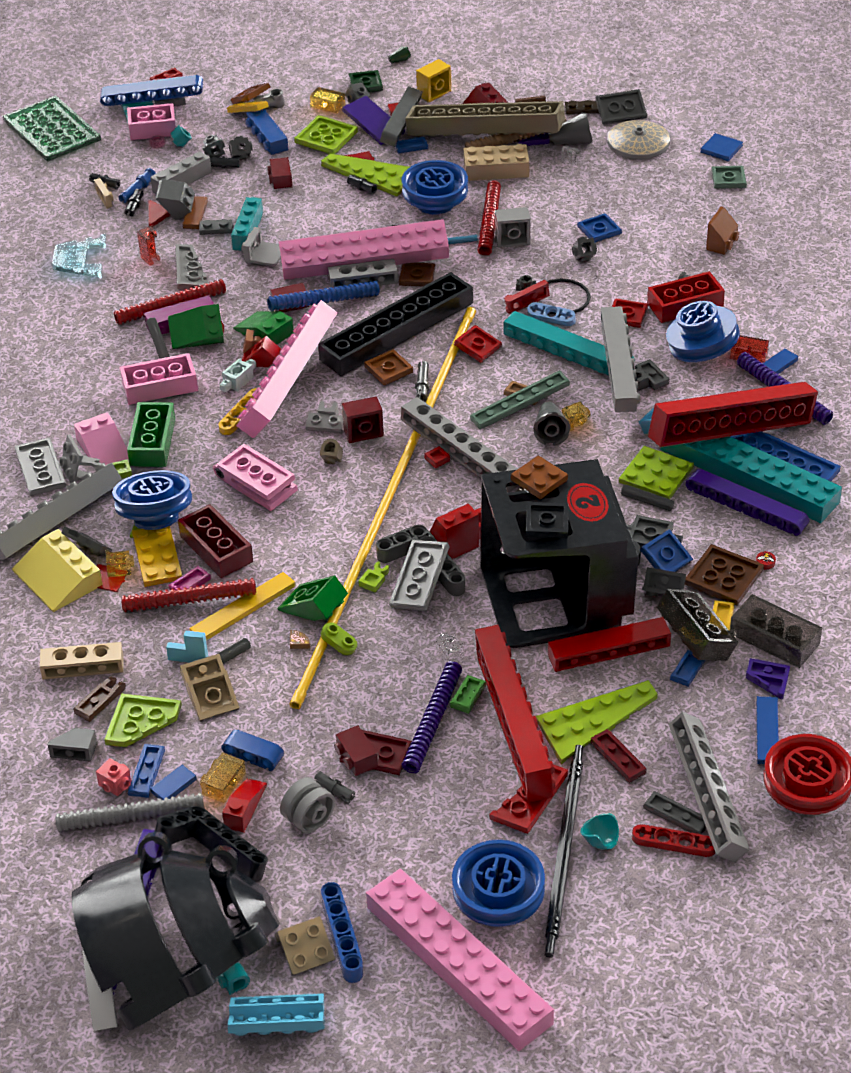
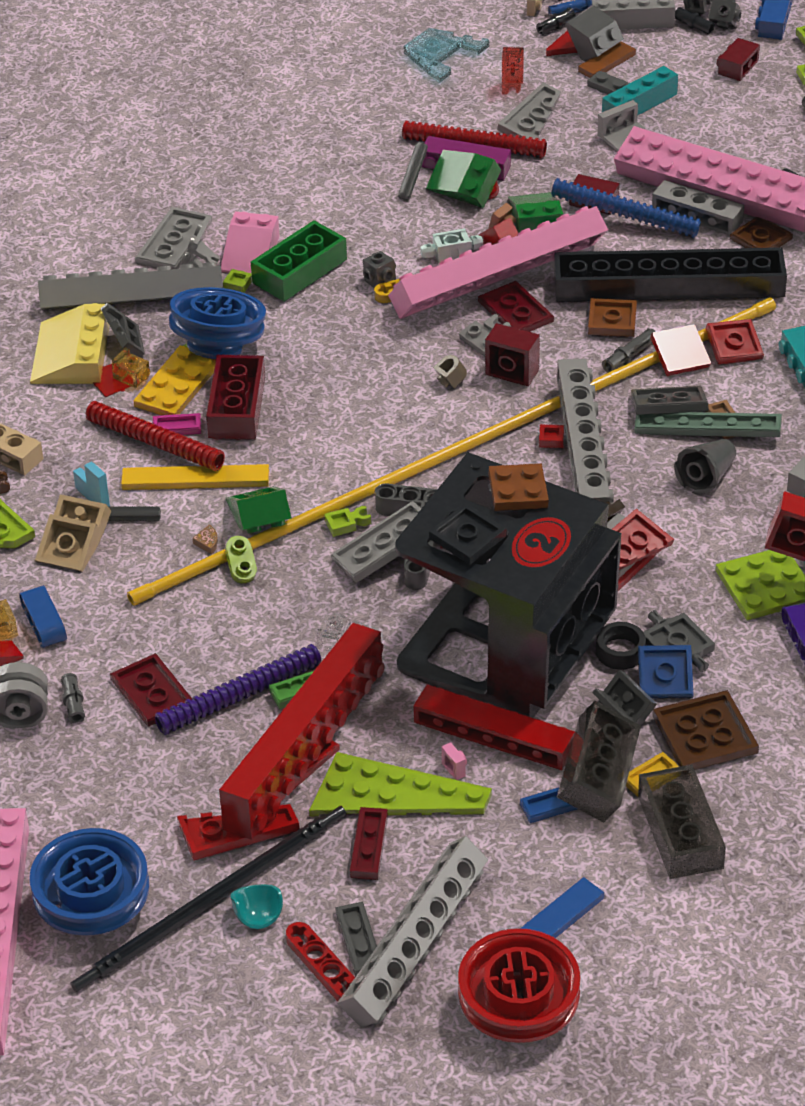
camera: 40 degrees right, 0 degrees up
(158, 378) = (368, 209): bright pink brick -> none
(210, 413) = (379, 269): none -> dark grey brick
(256, 477) = (347, 357): bright pink hinge -> none
(313, 390) = (516, 306): none -> dark red tile
(356, 750) = (123, 674): dark red brick -> none
(454, 365) = (680, 350): none -> tile
(481, 398) = (669, 400): none -> dark grey tile
(576, 414) = (746, 472): clear yellow brick -> none
(610, 678) = (454, 761): none -> bright pink plate
(647, 497) = (724, 603): dark grey axle -> none
(767, 559) = (773, 745): red tile -> none
(769, 676) = (623, 865): dark purple wing -> none

